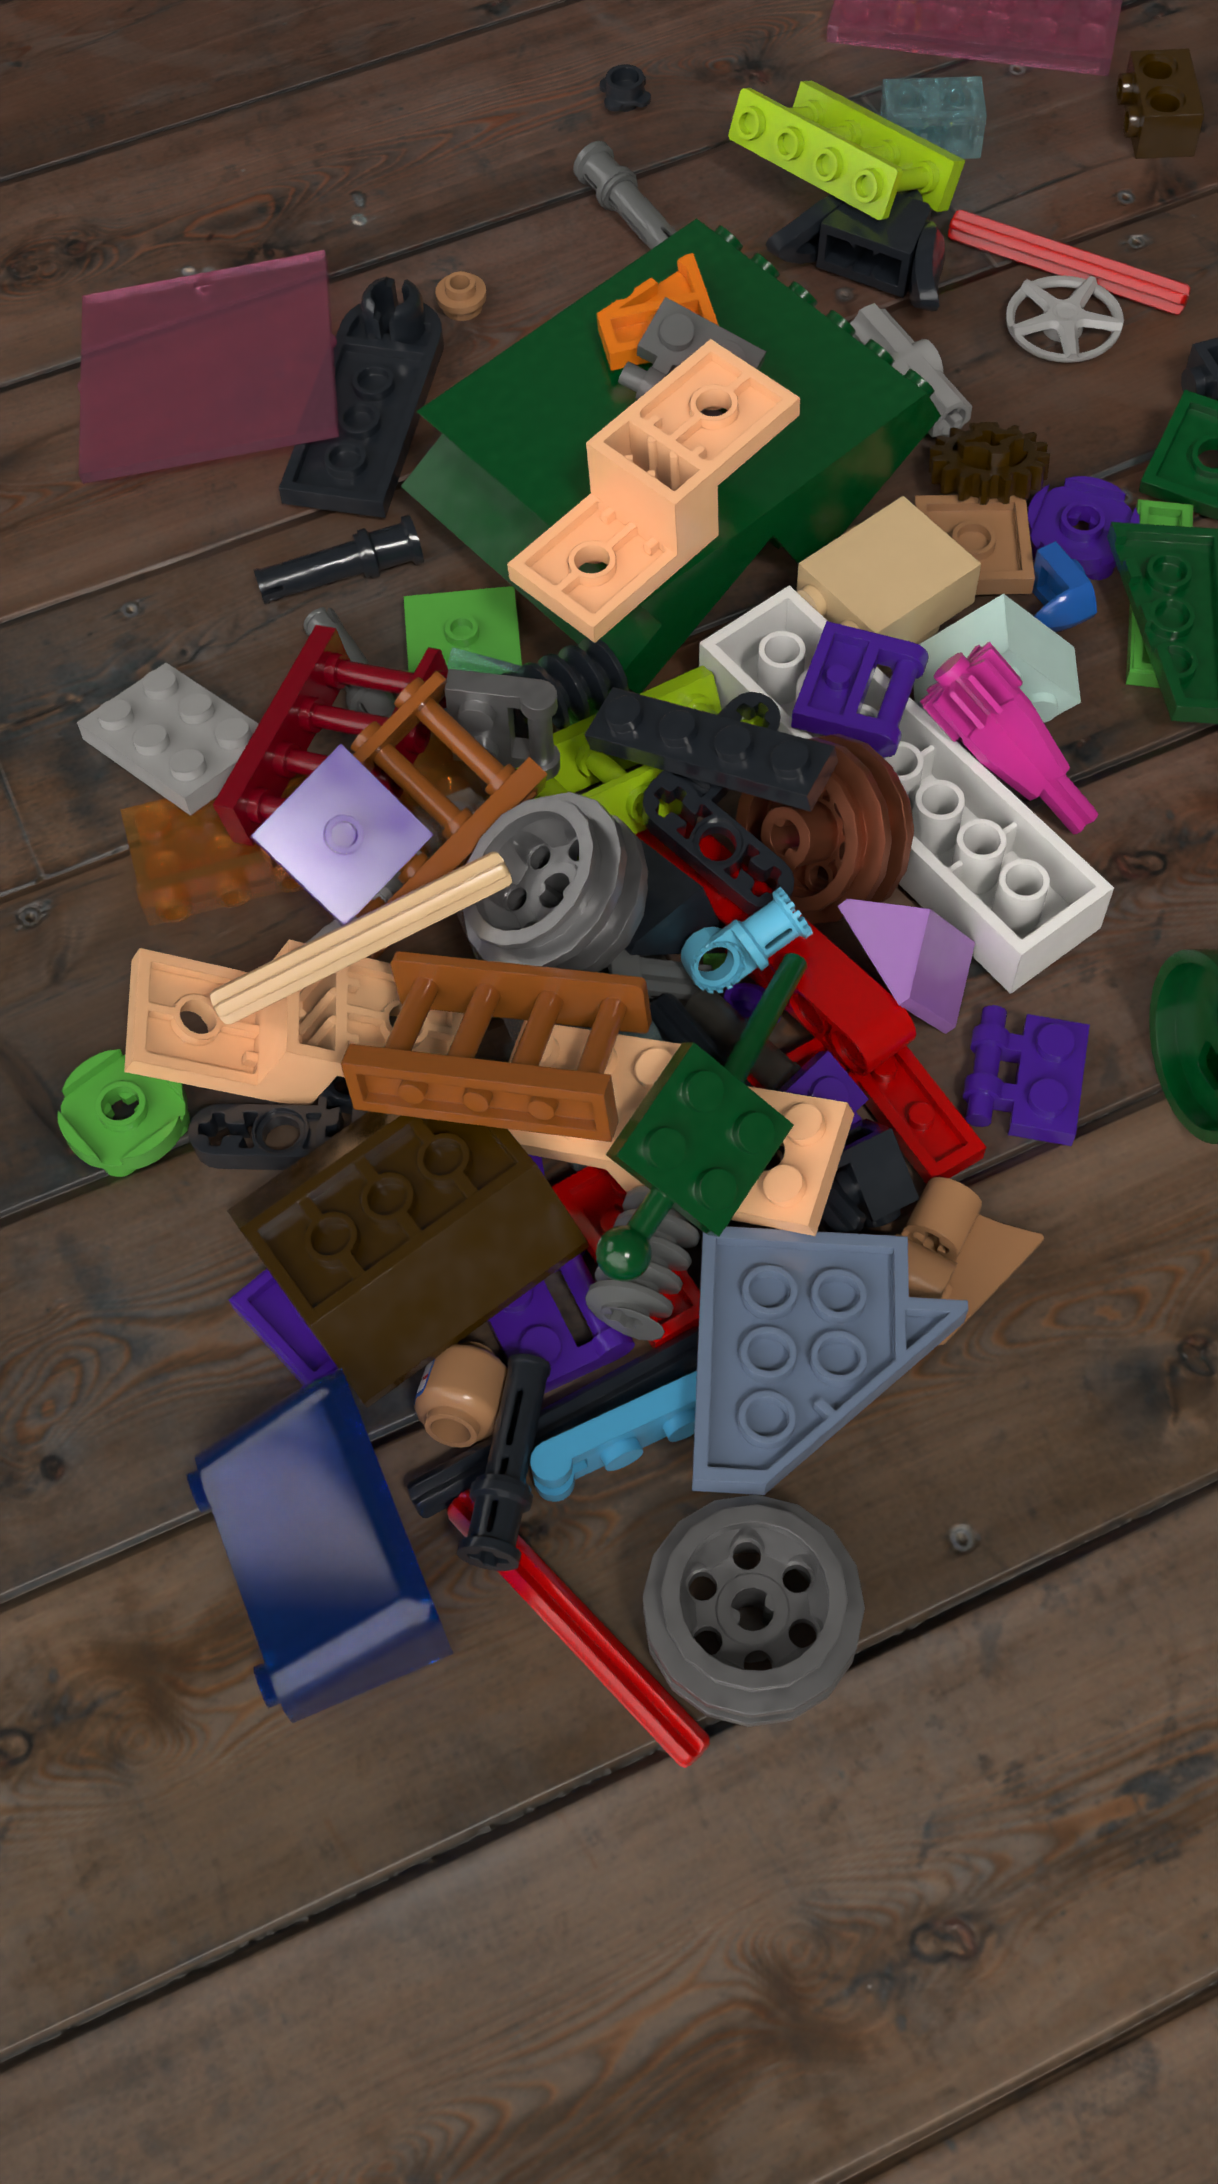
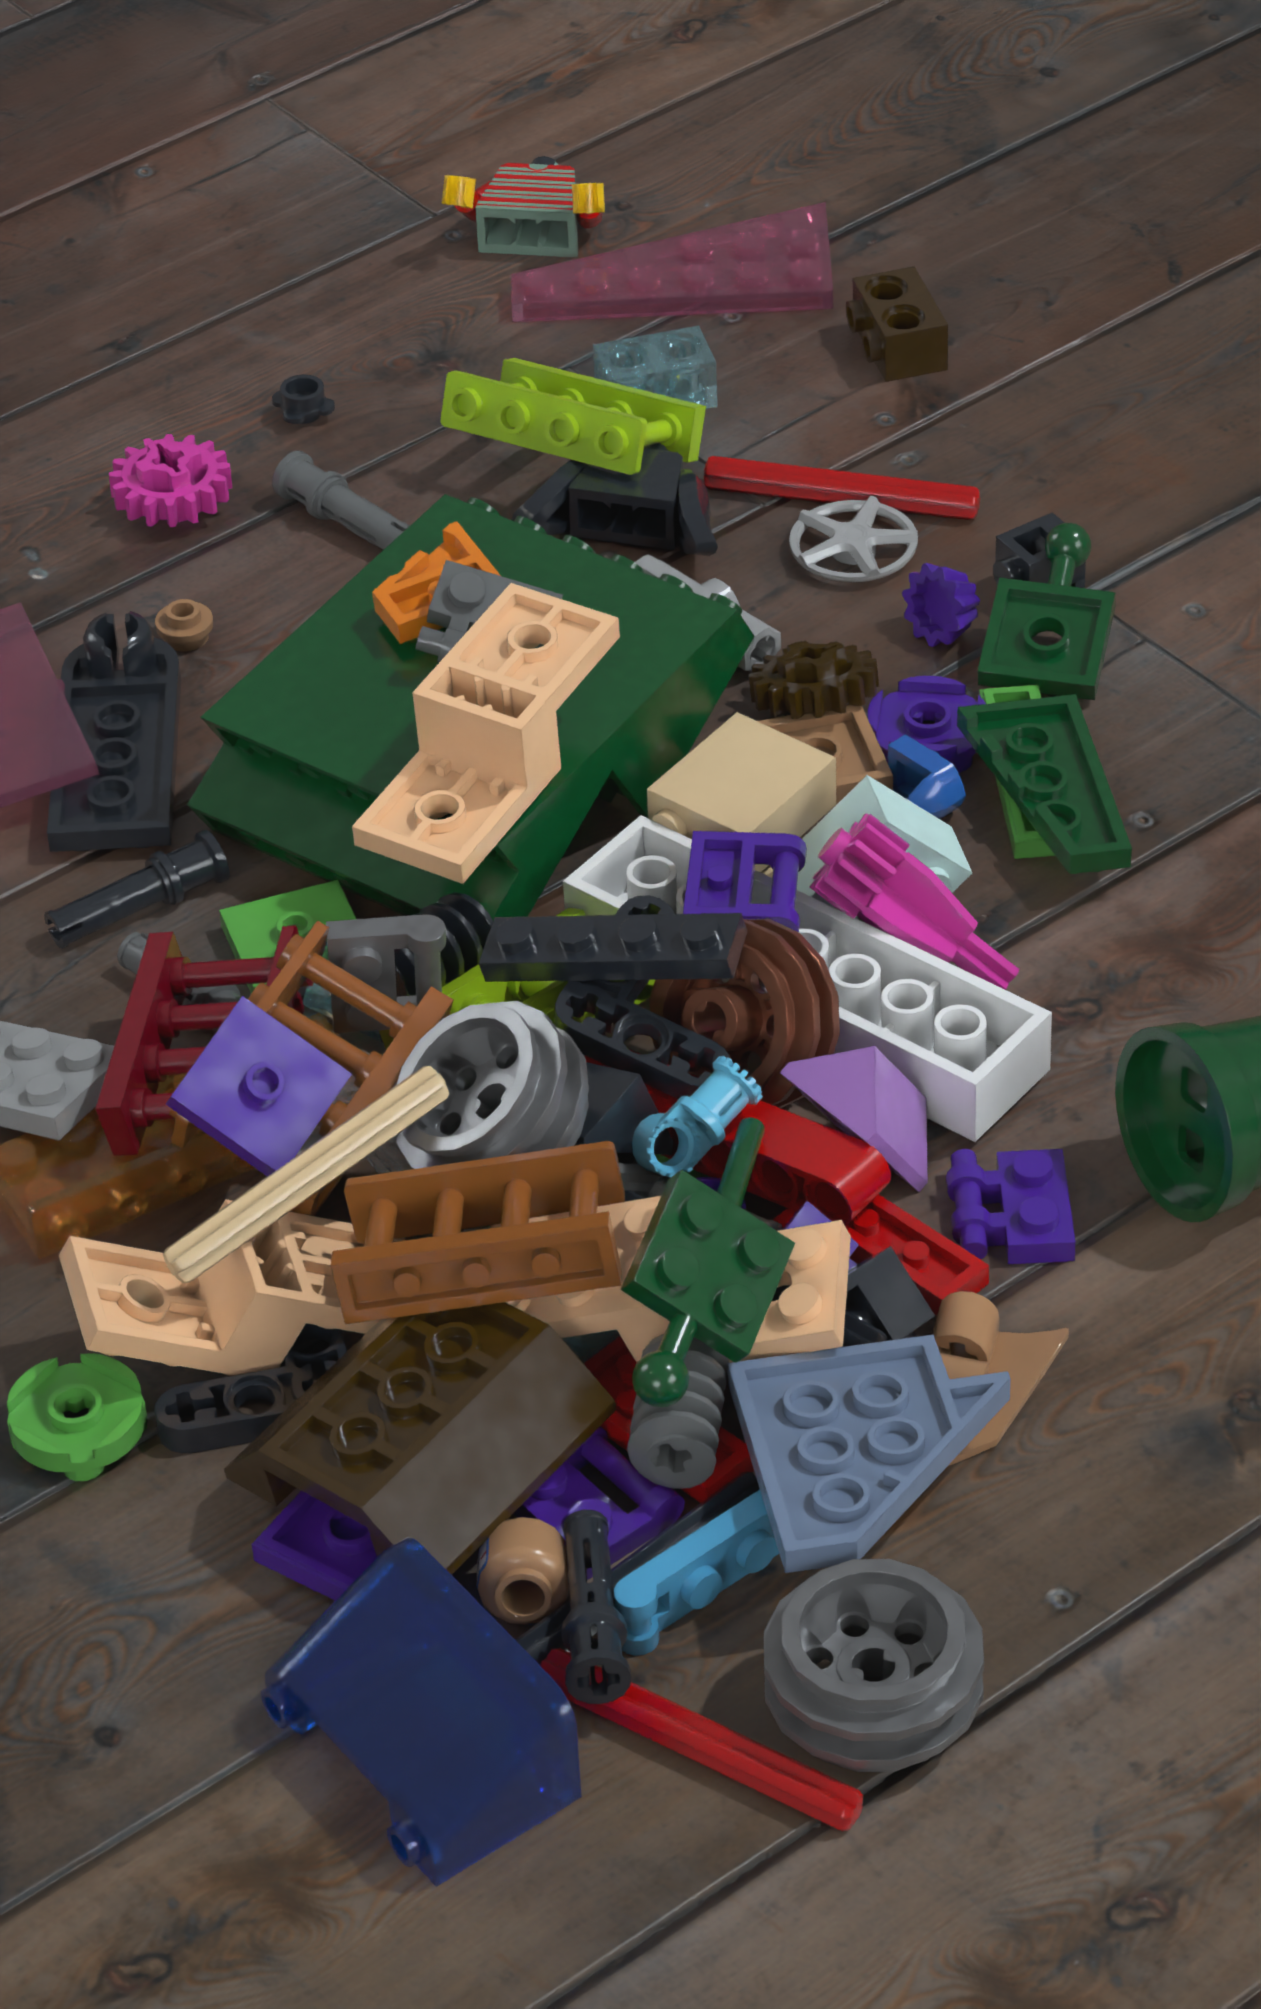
camera: 15 degrees left, 20 degrees down
(489, 149) = (170, 480): none -> dark pink gear
(1125, 402) = (940, 603): none -> dark purple piece

